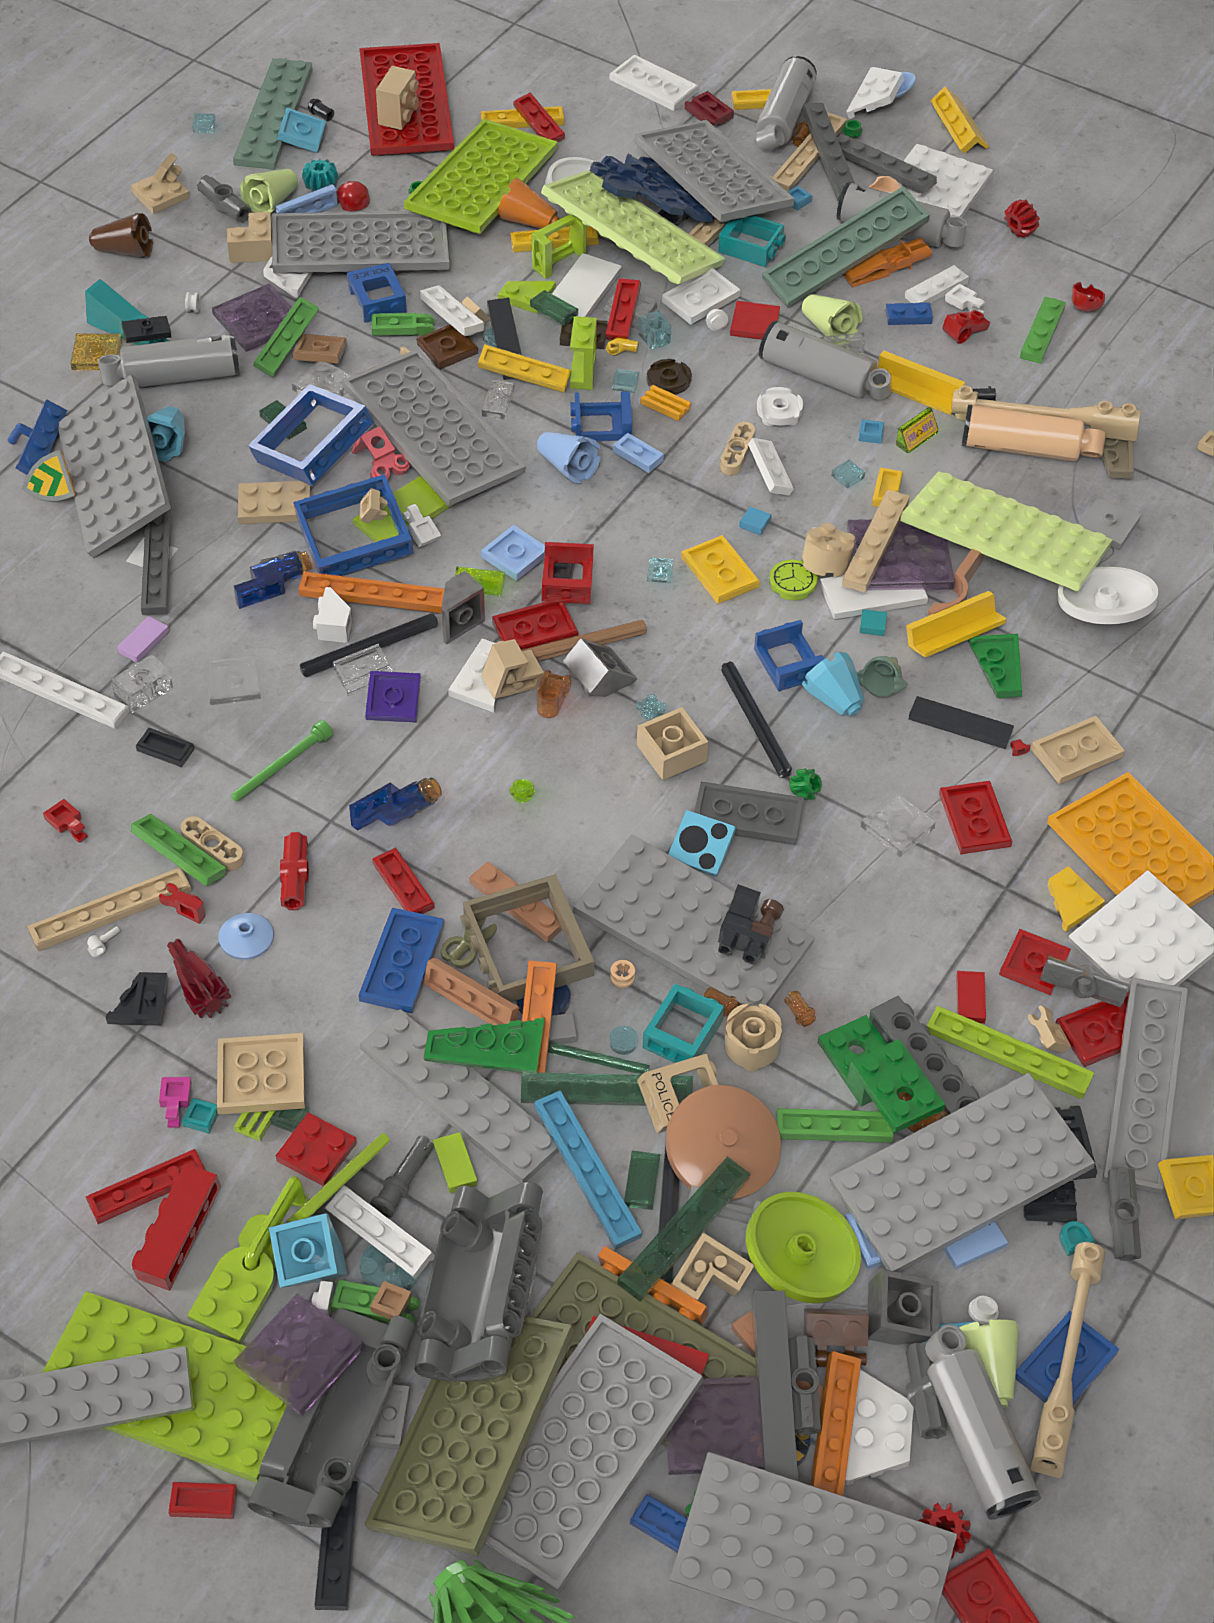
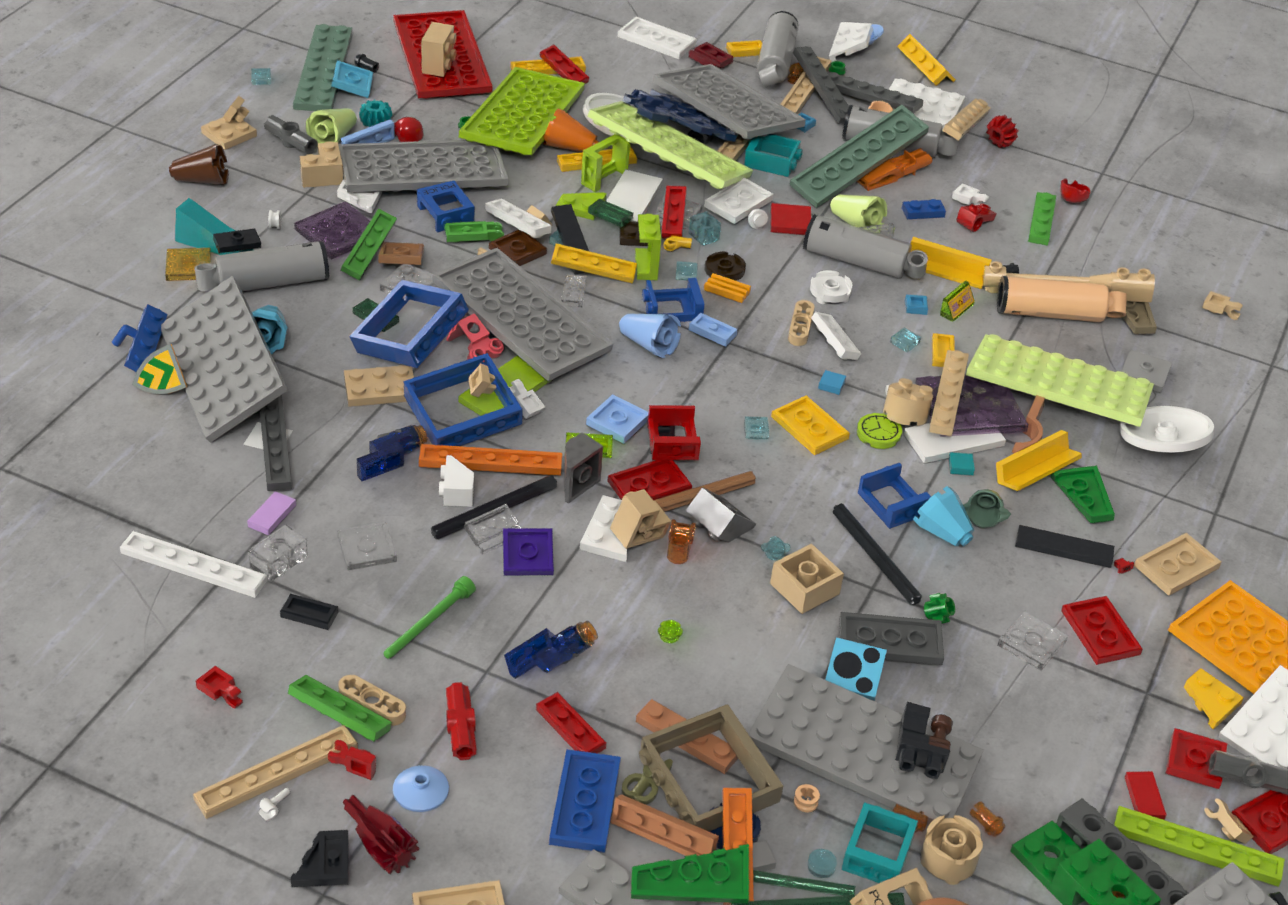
camera: 10 degrees left, 10 degrees down
(936, 286) = (942, 186): white plate -> none
(982, 202) = (967, 118): none -> tan plate

